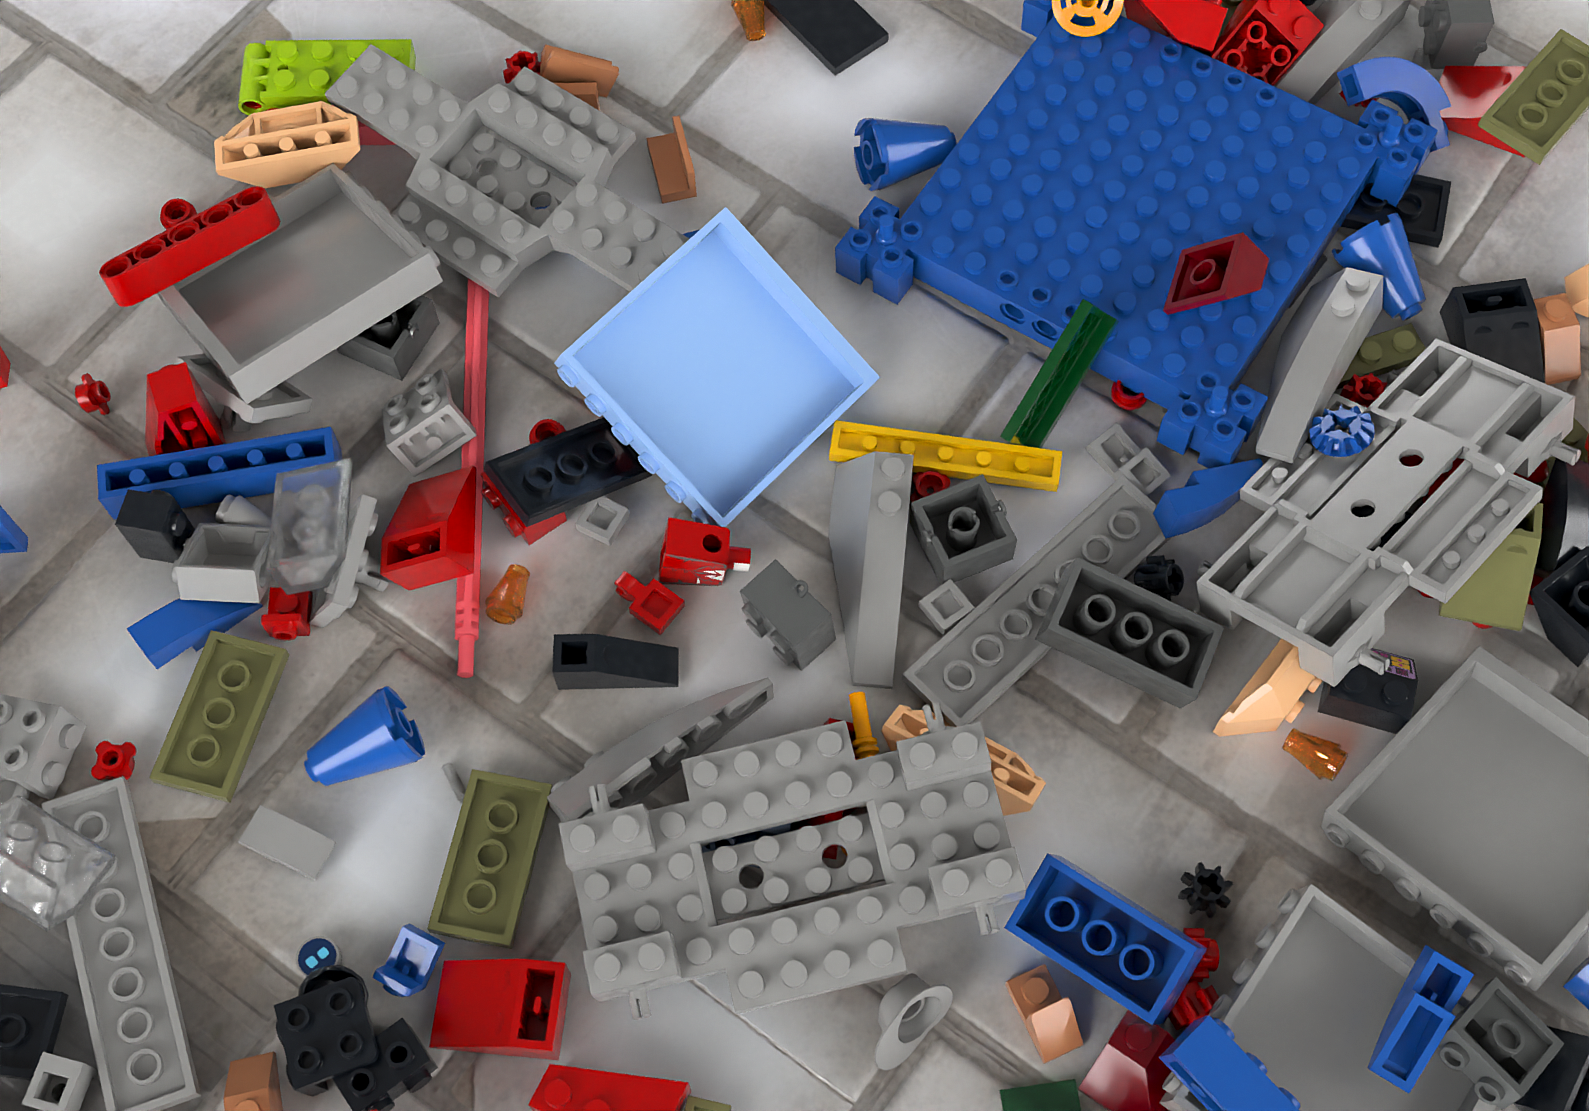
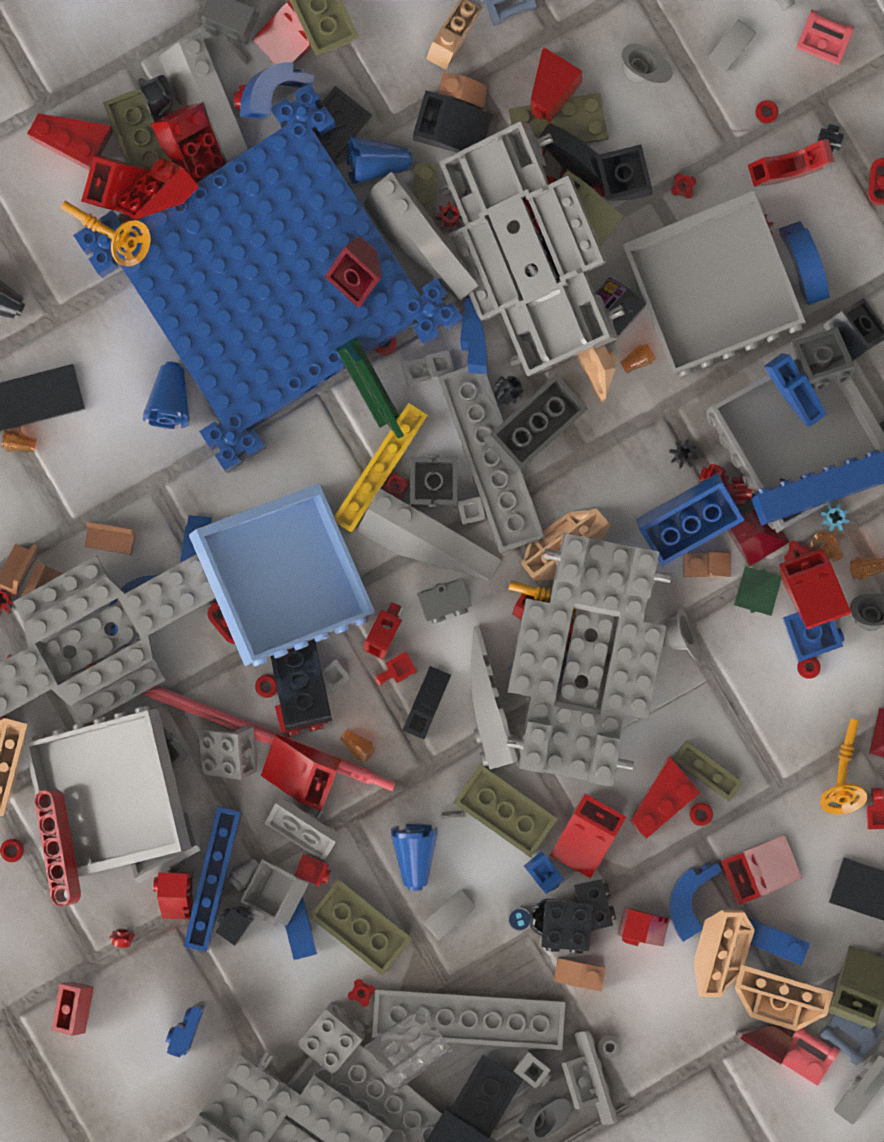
camera: 70 degrees left, 20 degrees up
(309, 525) = (274, 837): clear slope -> none
(1339, 443) = (482, 258): blue gear -> none

